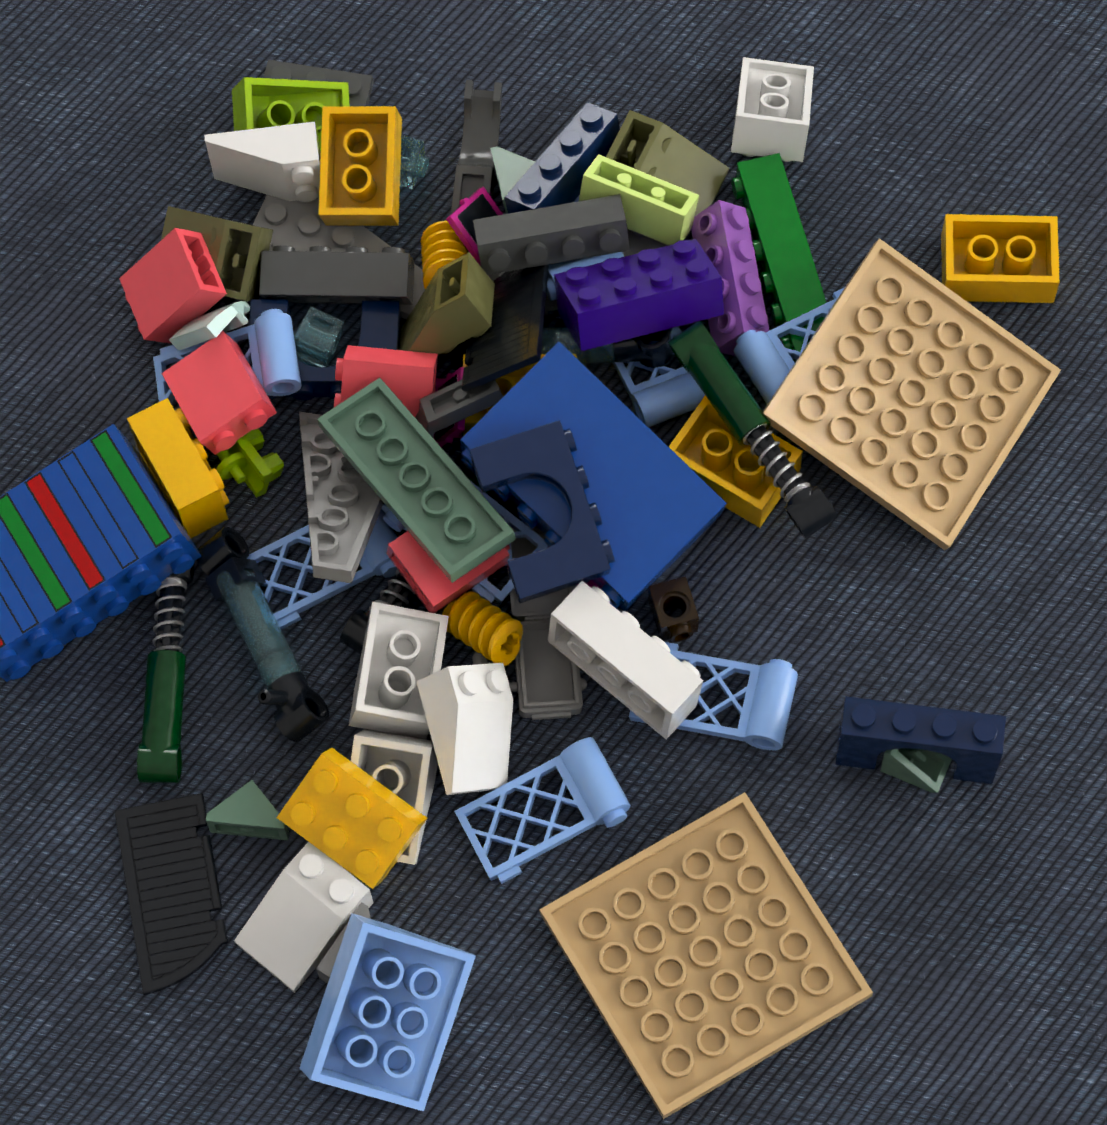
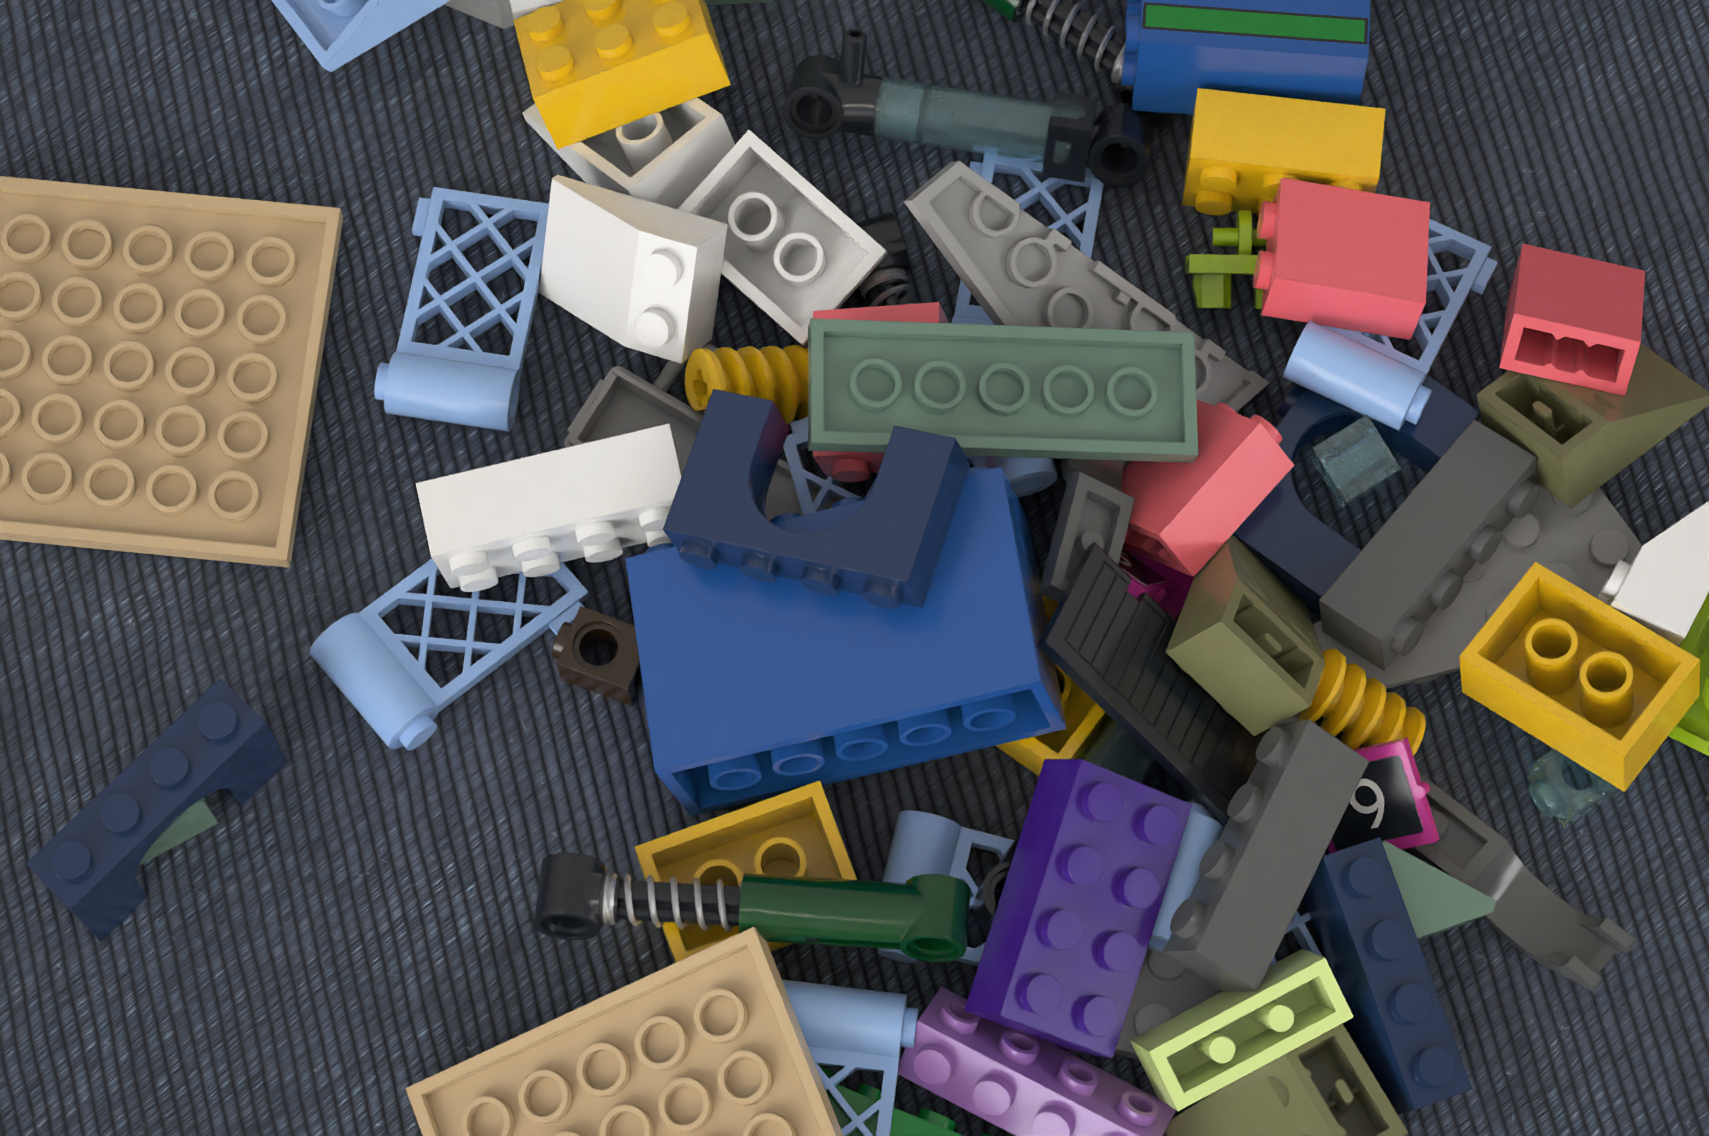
camera: 125 degrees right, 5 degrees up
(211, 325) = (1469, 322): light aqua slope -> none

